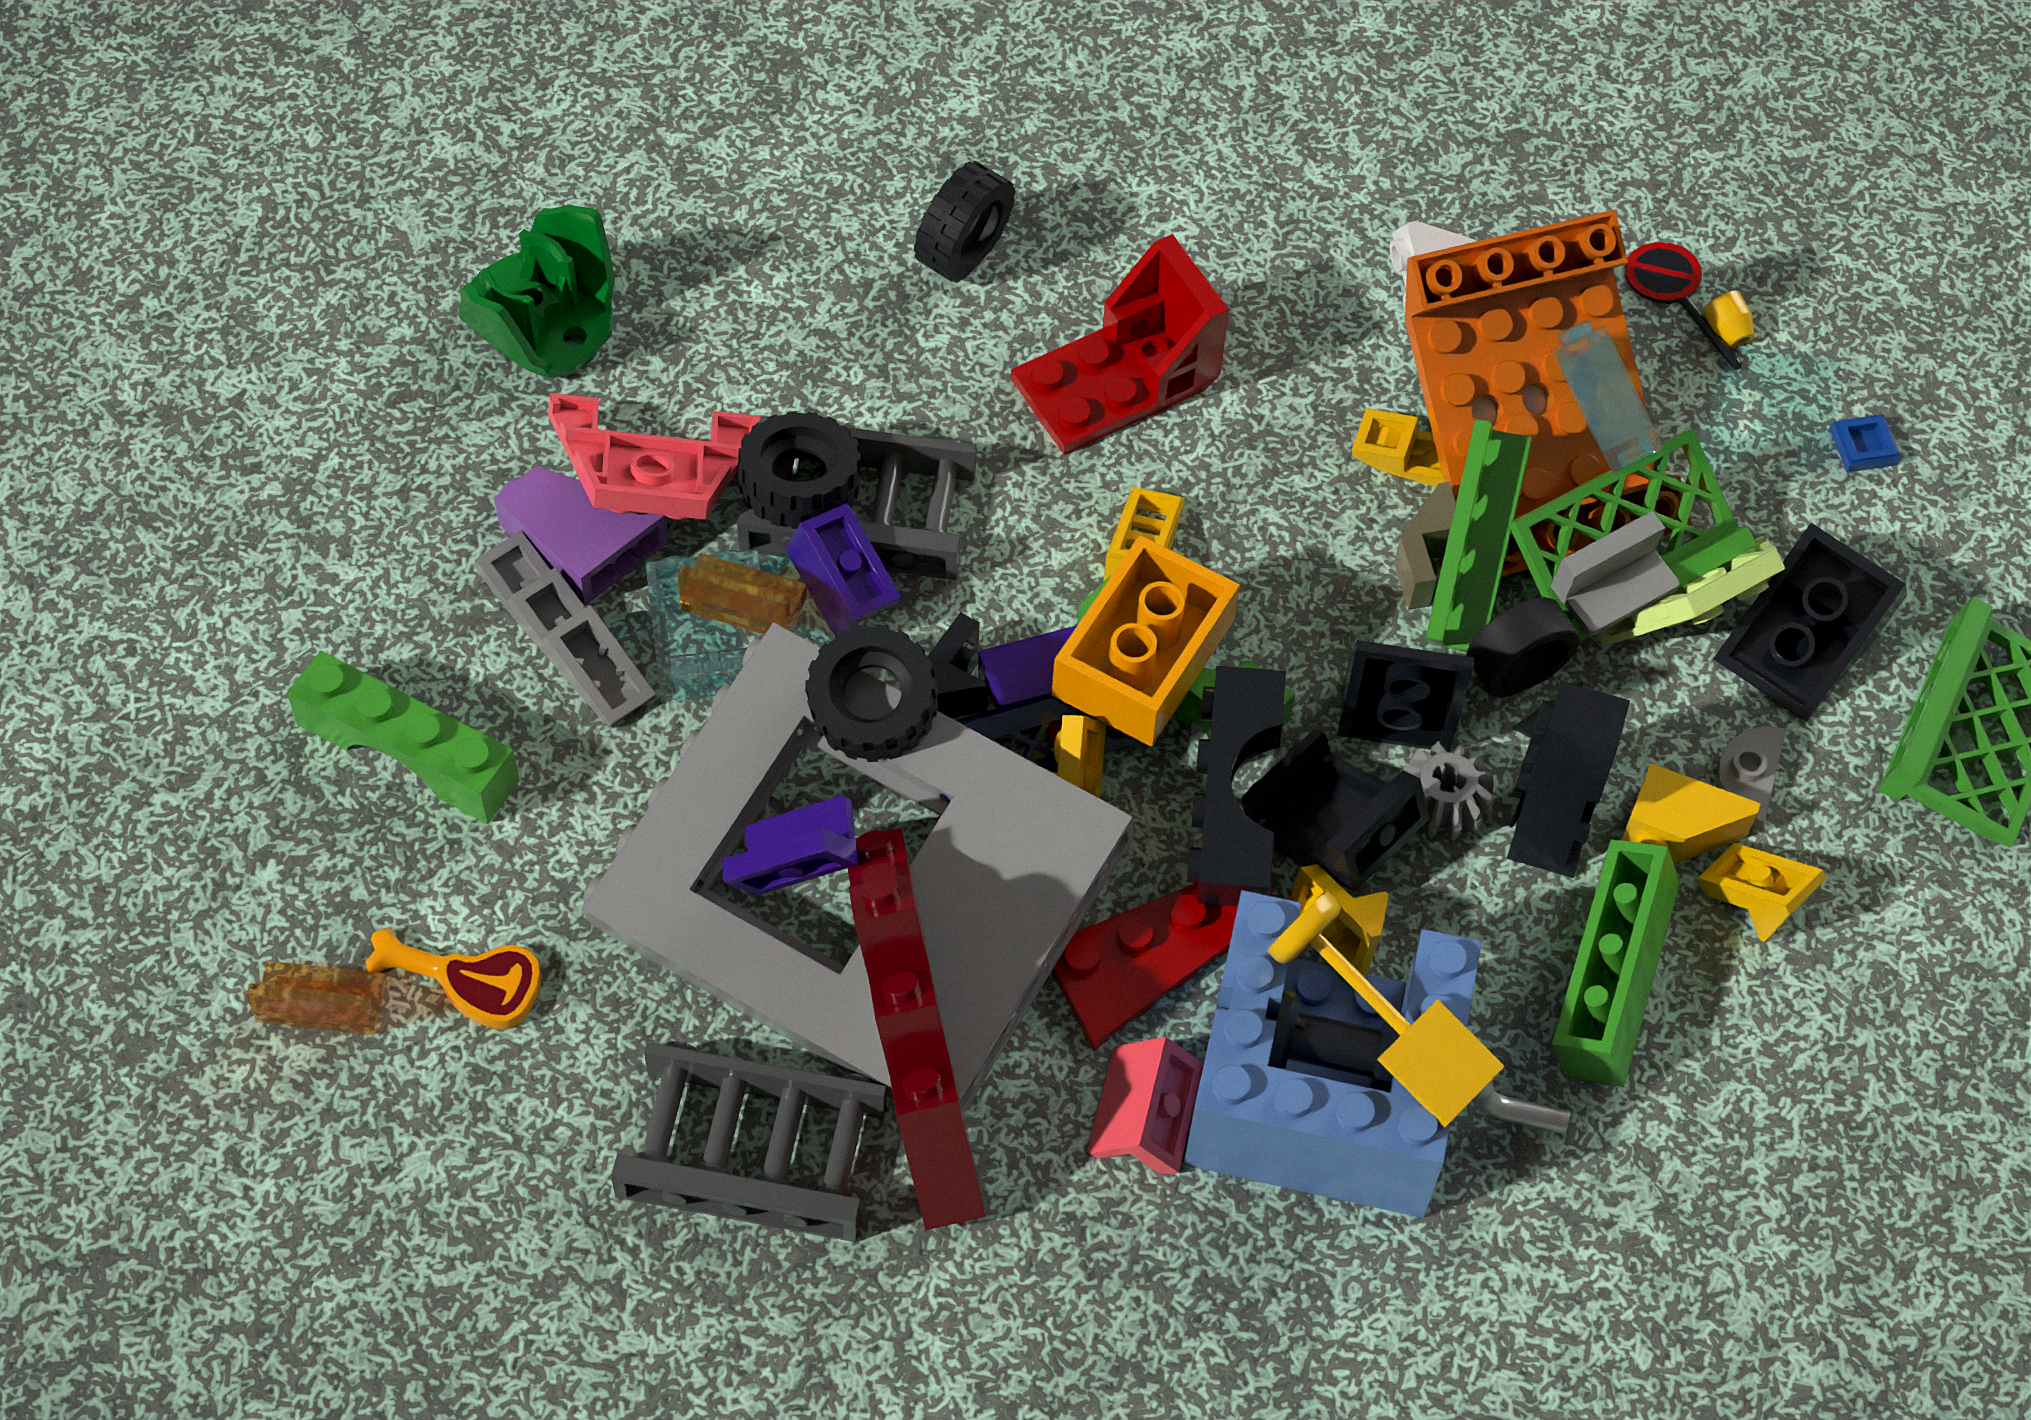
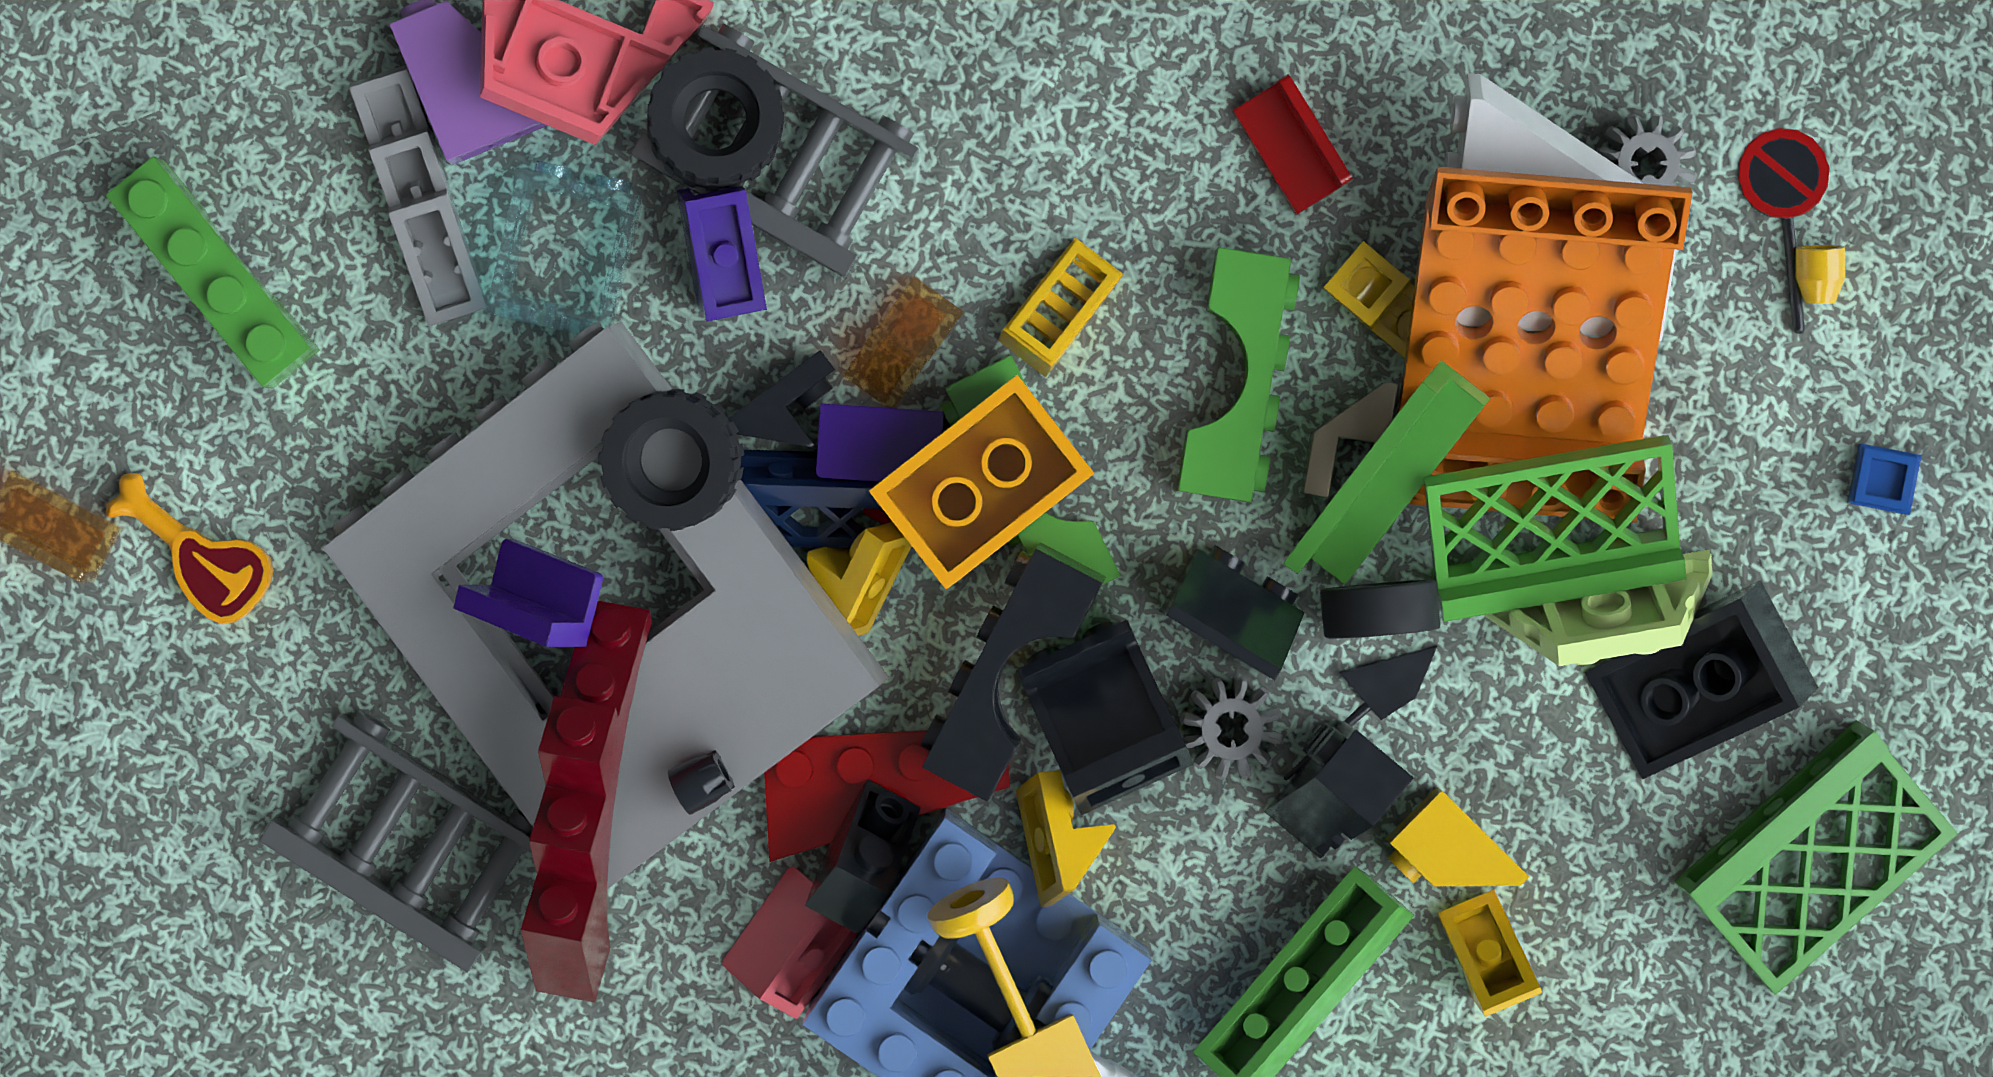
camera: 20 degrees right, 30 degrees up
(740, 594) = (600, 255): clear orange panel -> none
(1007, 954) = (700, 782): none -> black hose
(1025, 599) = (903, 343): none -> clear orange slope
(1154, 350) = (1121, 86): red bracket -> none
(1180, 991) = (863, 857): none -> black slope
(1279, 359) = (1292, 145): none -> red panel
(1298, 477) = (1250, 298): none -> bright green arch
(1605, 395) = (1586, 388): clear light blue window -> none
(1615, 576) = (1508, 580): light grey panel -> none
(1751, 766) = (1552, 815): light grey plate -> none

